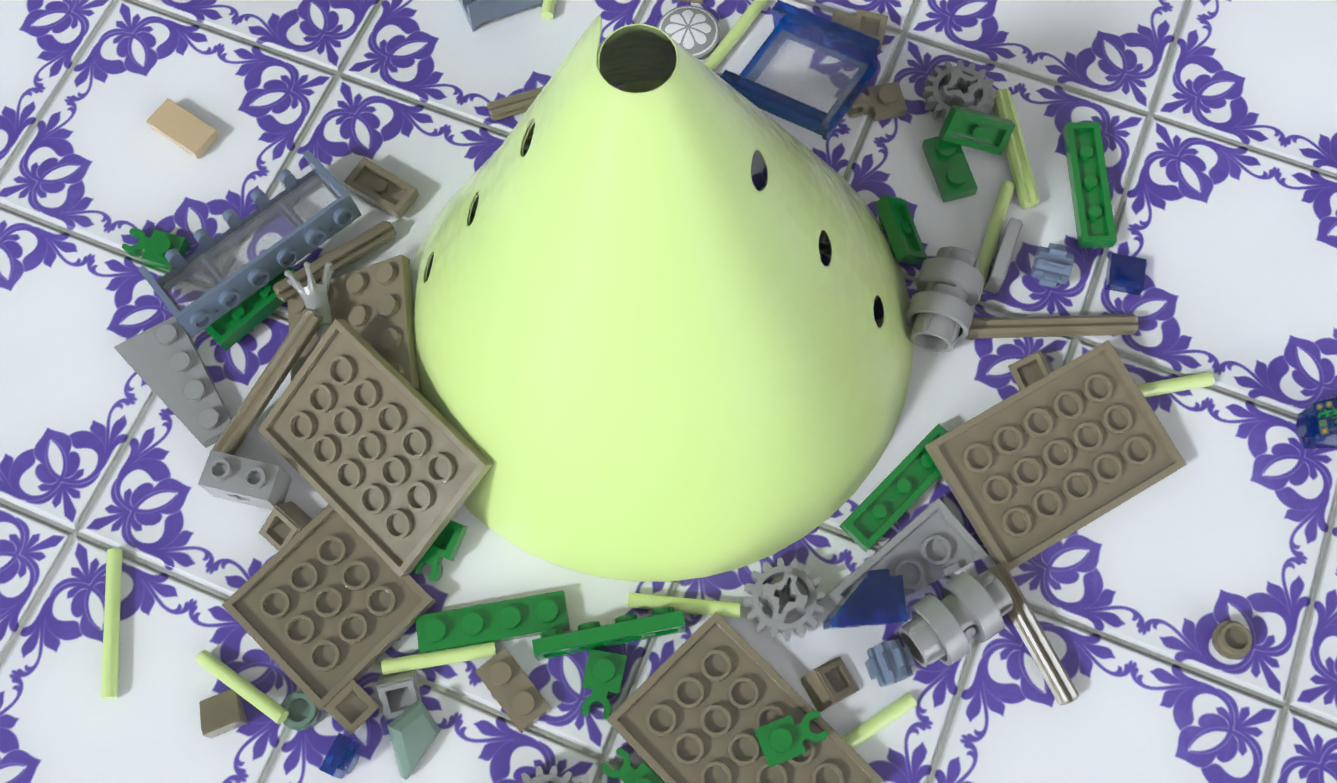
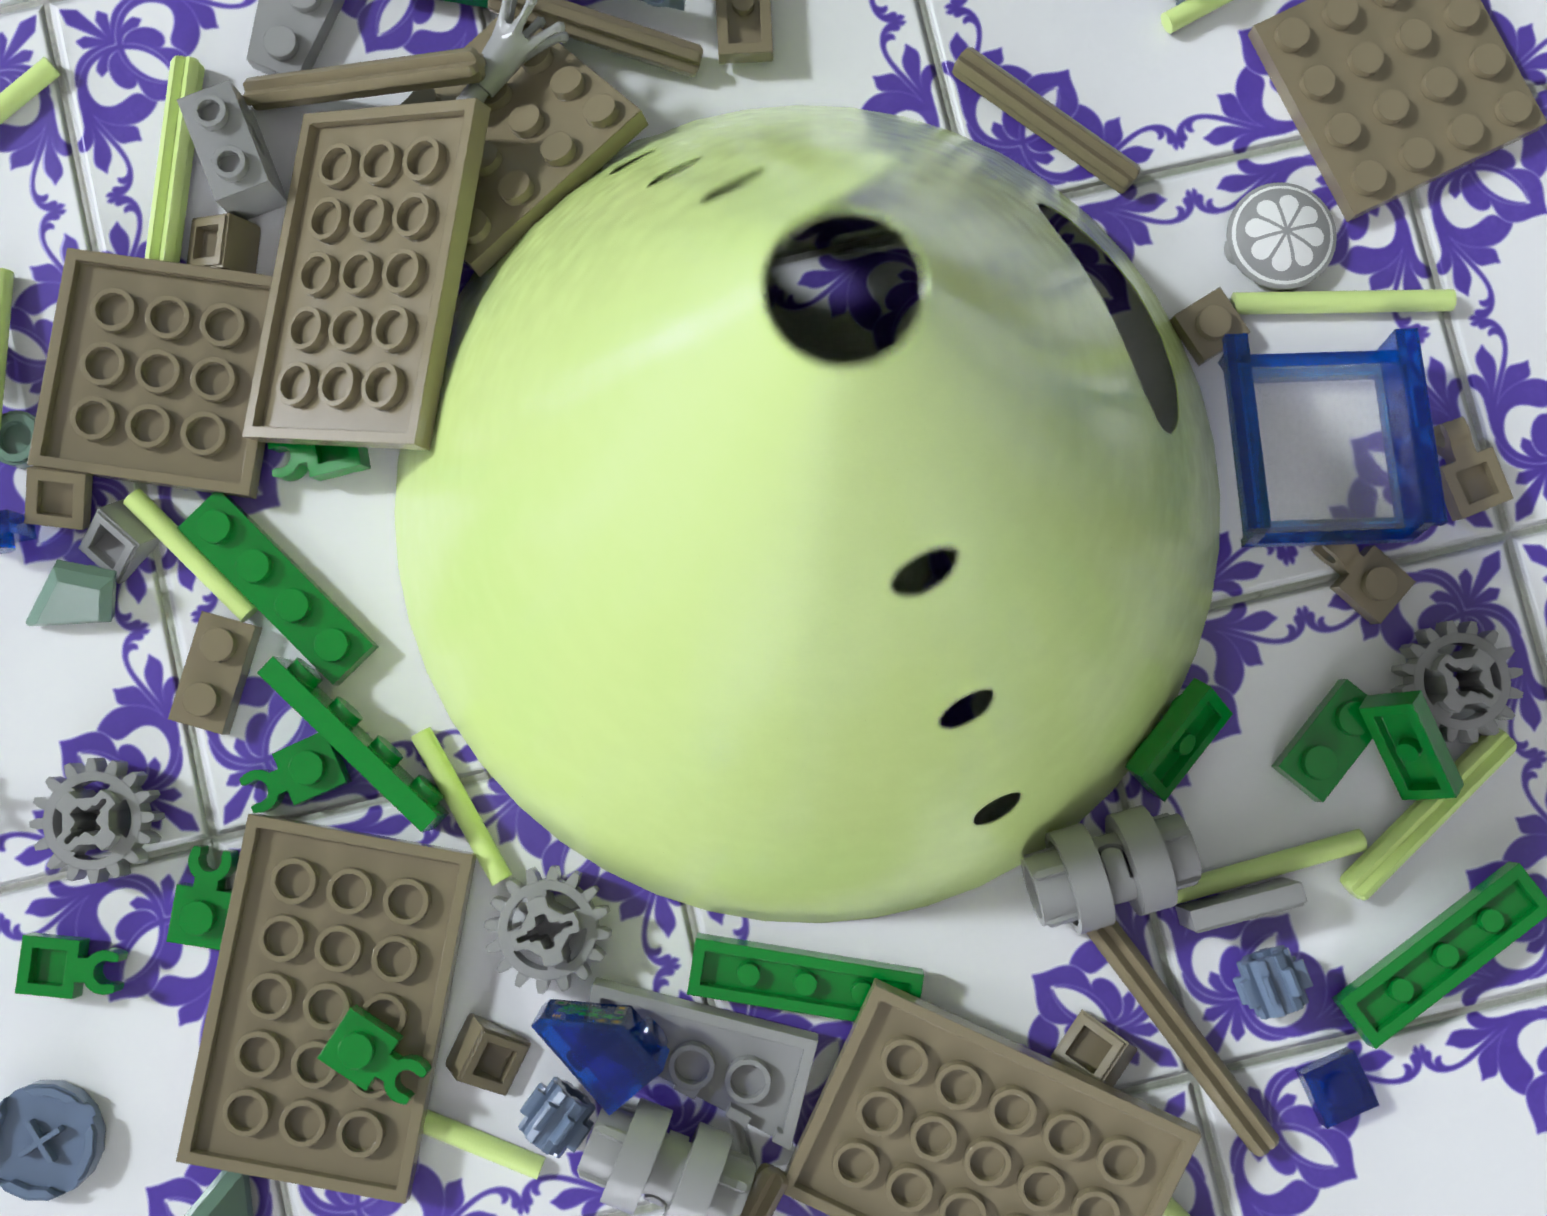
camera: 50 degrees right, 15 degrees up
(220, 518) = (173, 164): none -> yellowish green axle

